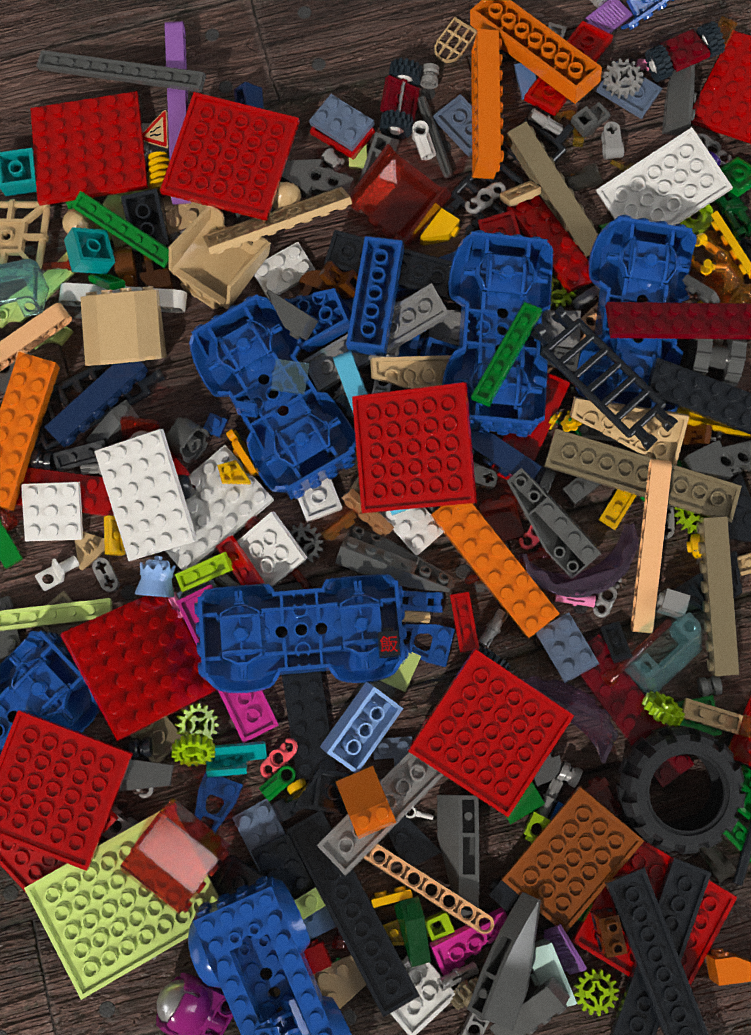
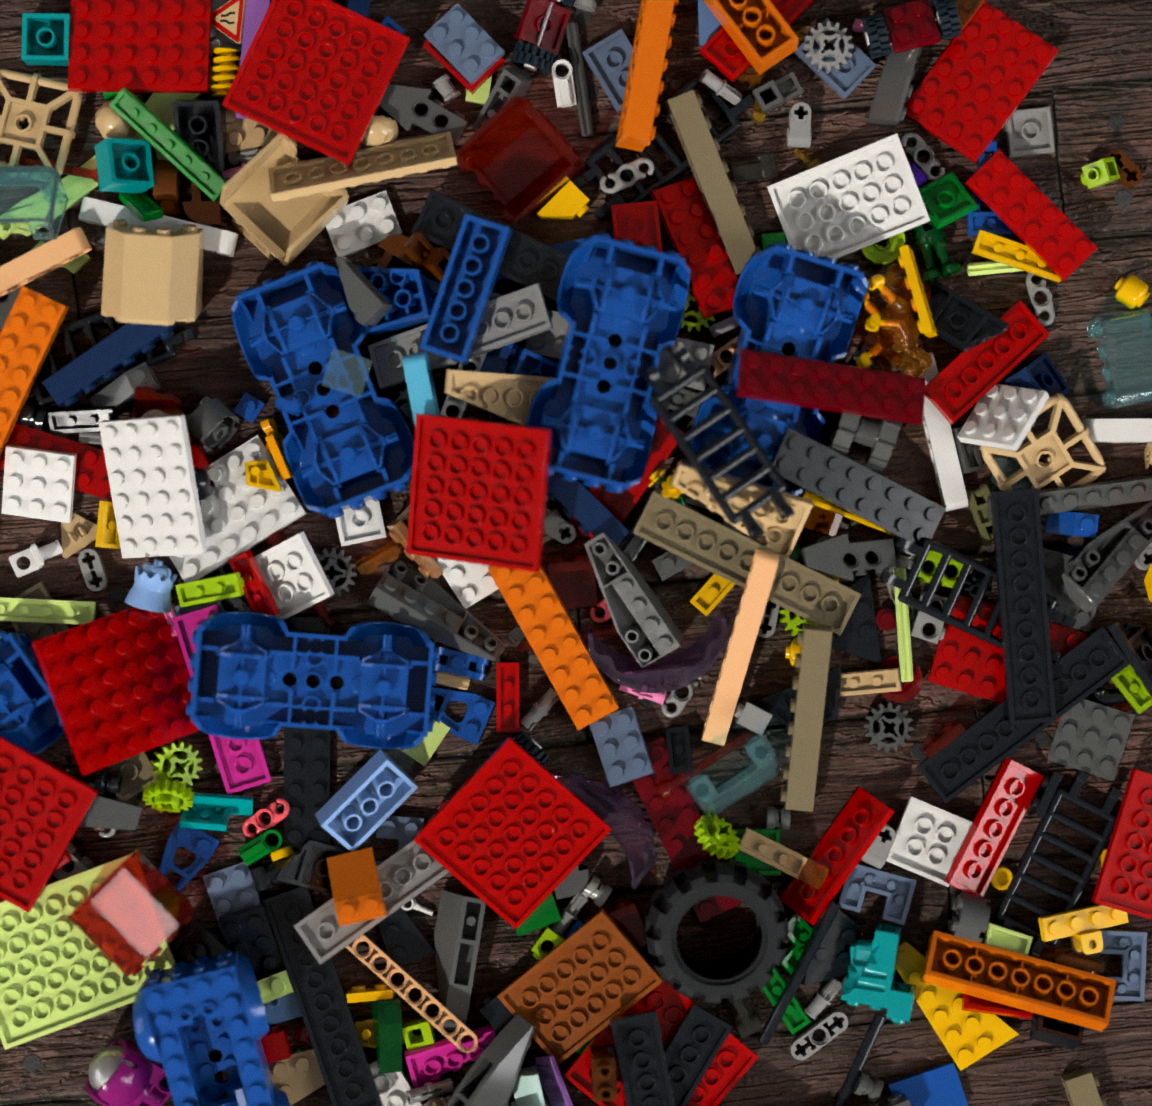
camera: 10 degrees right, 10 degrees up
(388, 643) = (410, 716): black brick -> none
(506, 354) = (607, 398): green tile -> none
(520, 193) = (670, 179): tan plate -> none
(697, 288) = (854, 343): dark grey plate -> none

